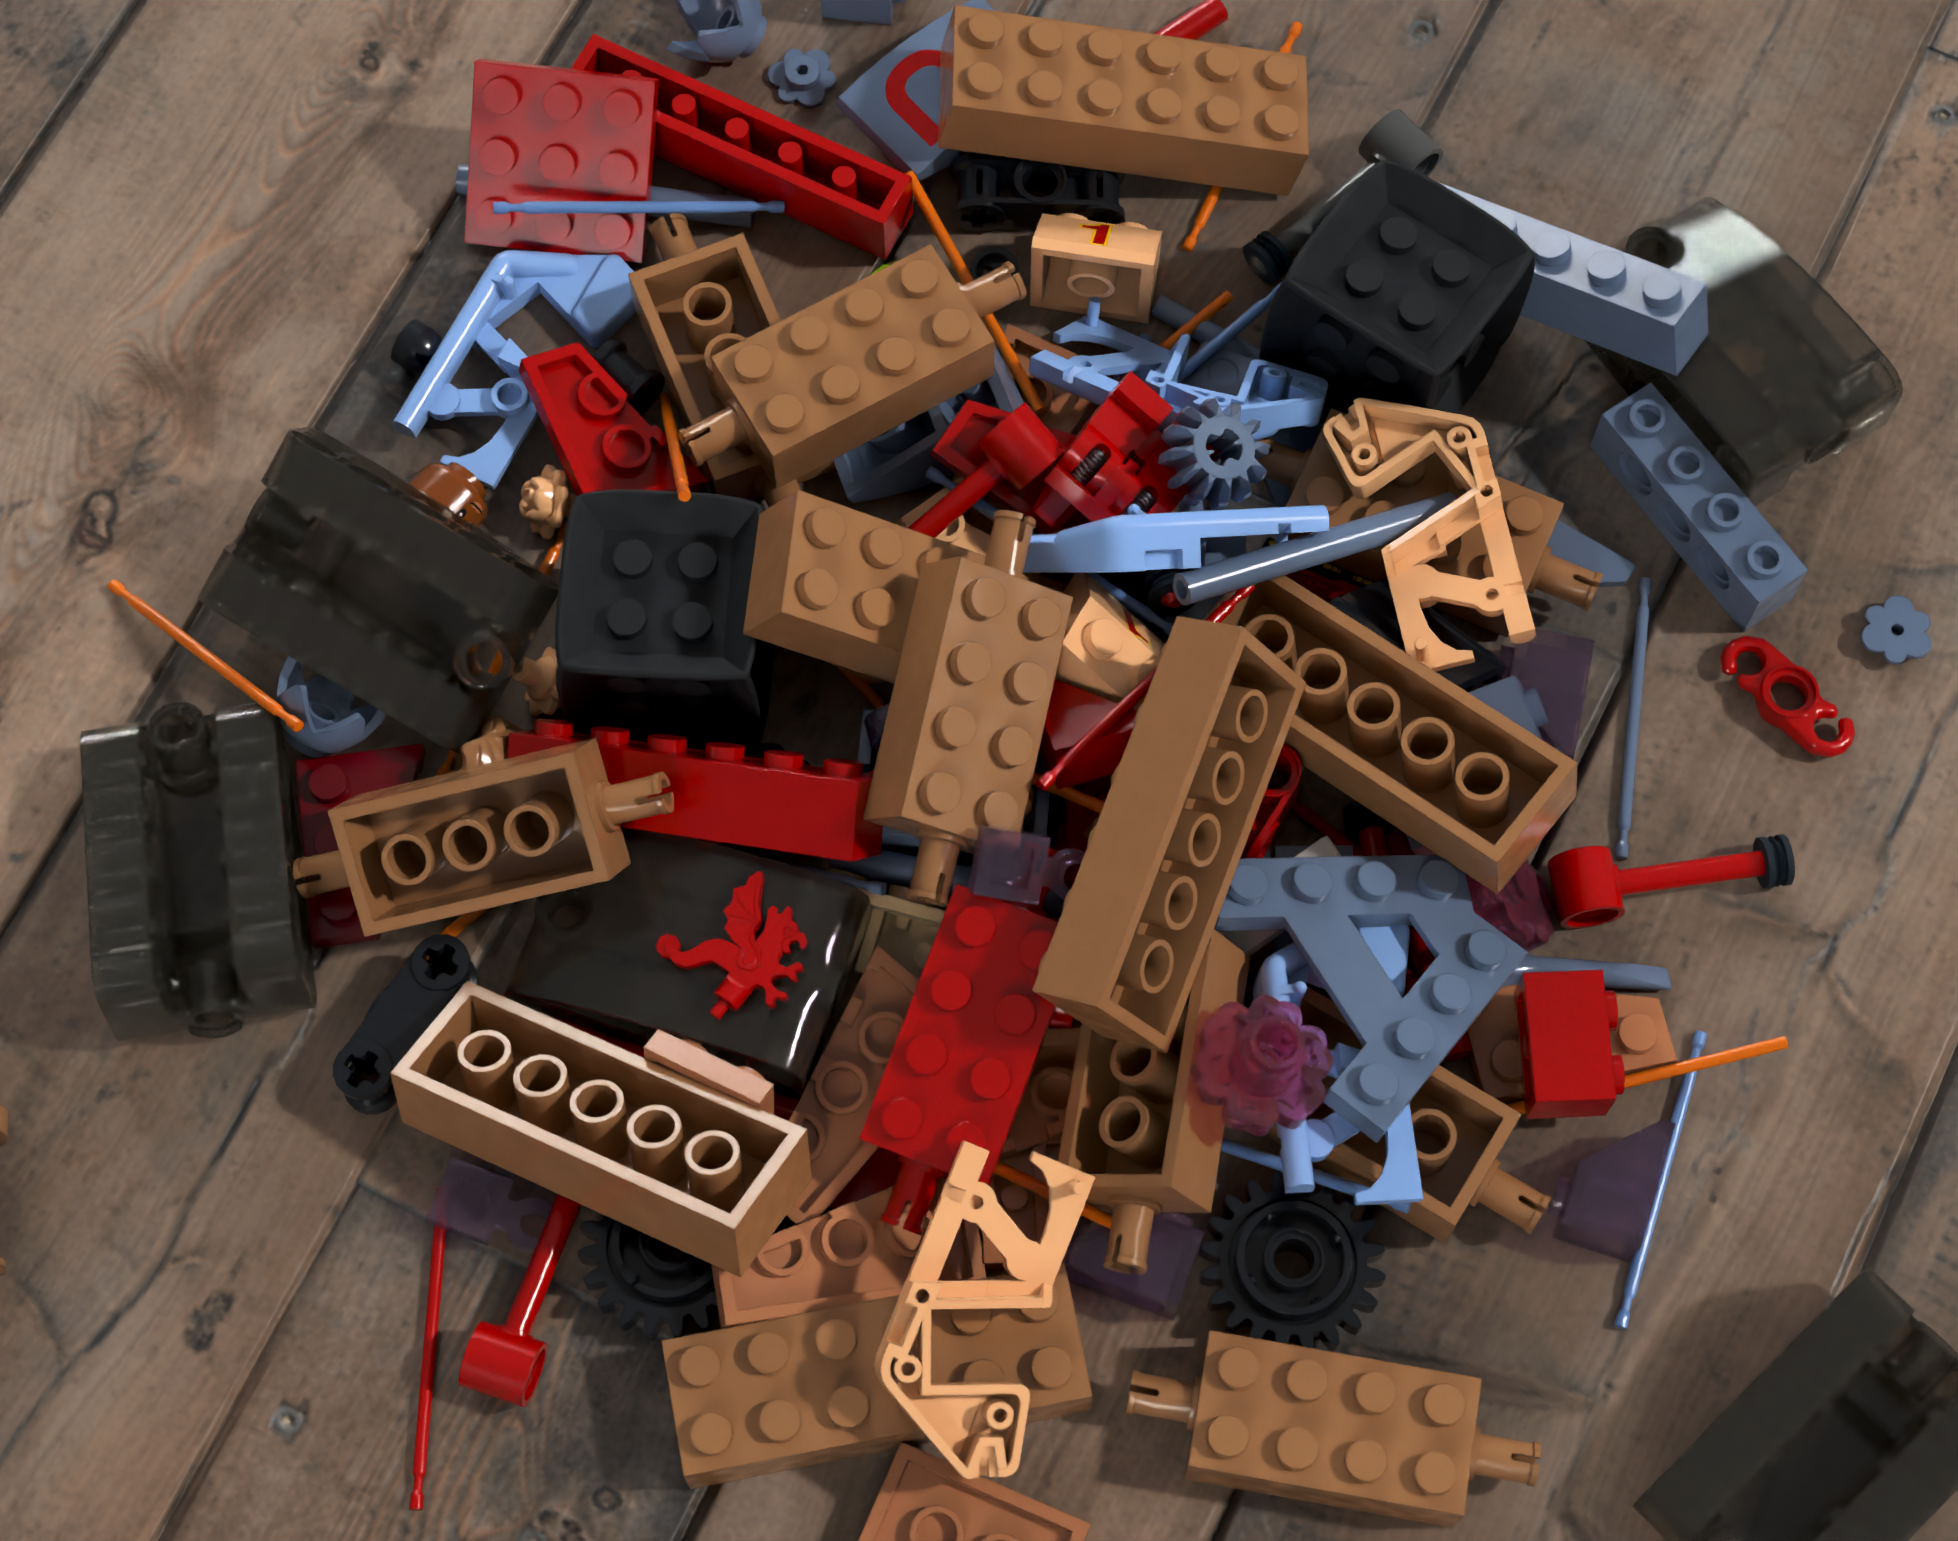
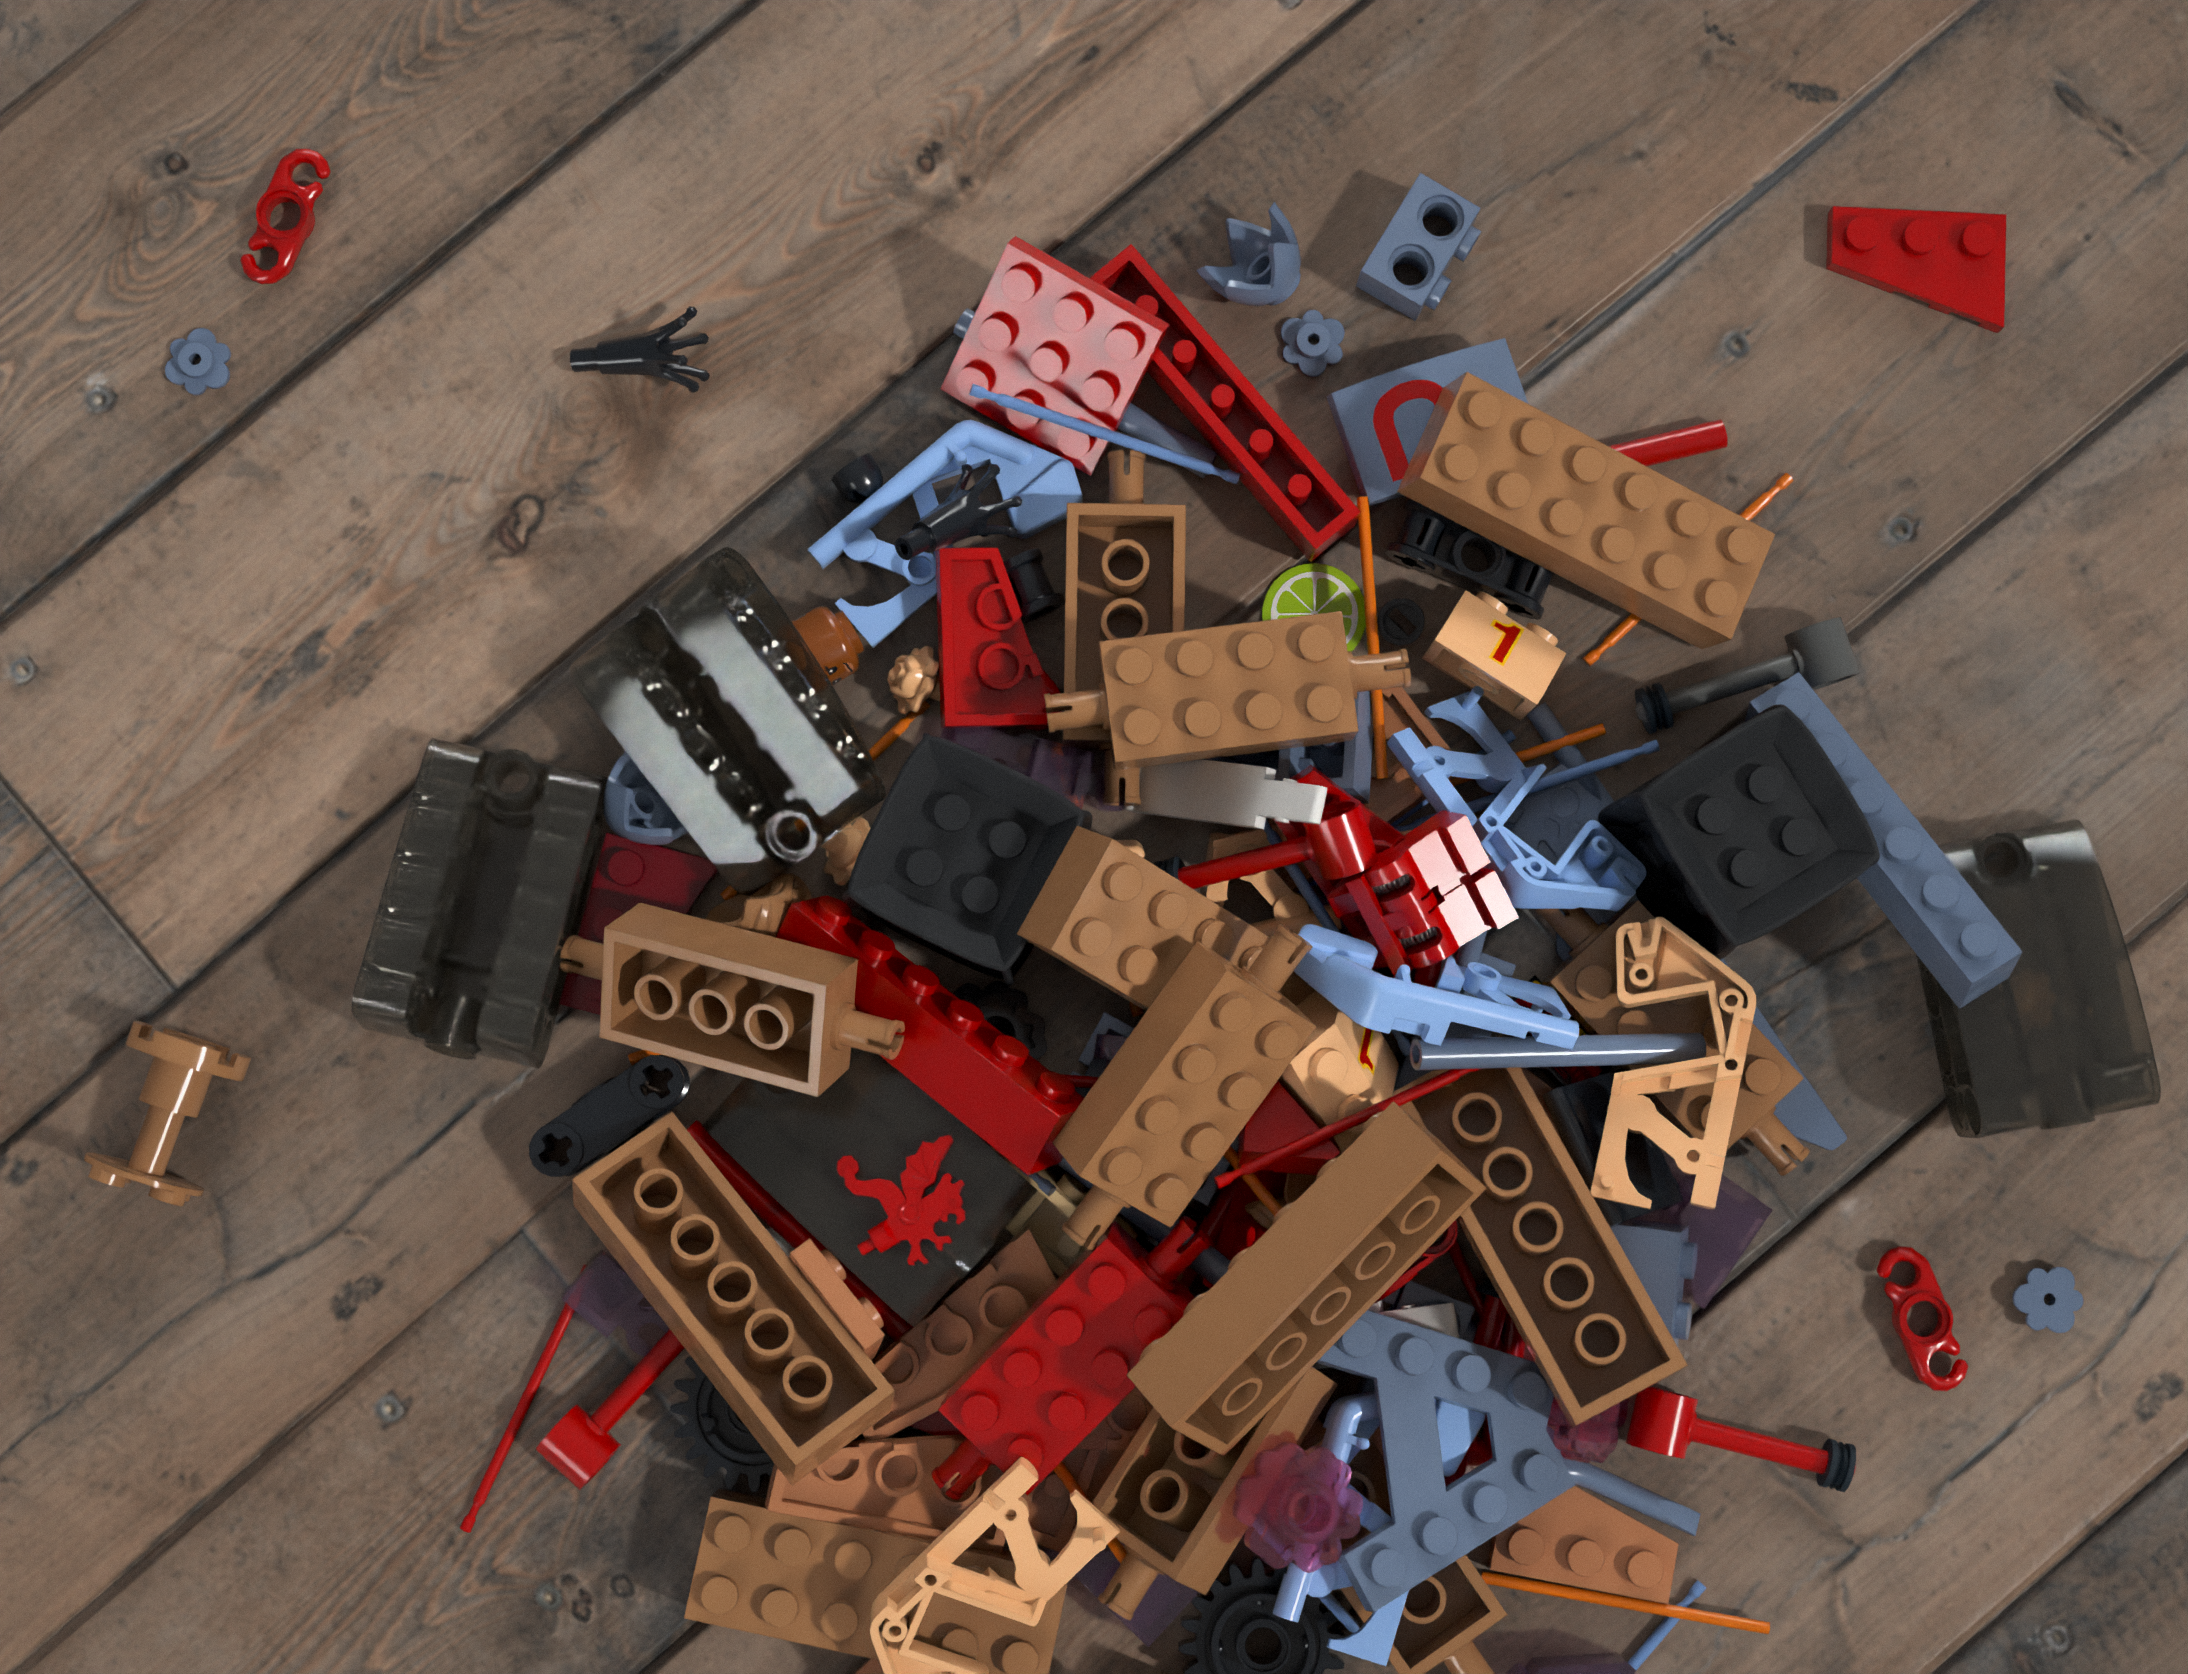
camera: 20 degrees right, 15 degrees up
(159, 317) = (645, 354): none -> black piece
(206, 656) = (562, 709): orange piece -> none
(529, 329) = (957, 518): none -> black piece
(674, 448) = (1037, 700): orange piece -> none
(902, 456) = (1226, 794): none -> white piece
(1017, 865) = (1167, 1248): clear purple plate -> none
(1234, 447) = (1488, 946): sand blue gear -> none
(1567, 1044) = (1576, 1565): red brick -> none
(1633, 719) = (1779, 1277): sand blue piece -> none
(1697, 507) = (1926, 1117): sand blue brick -> none

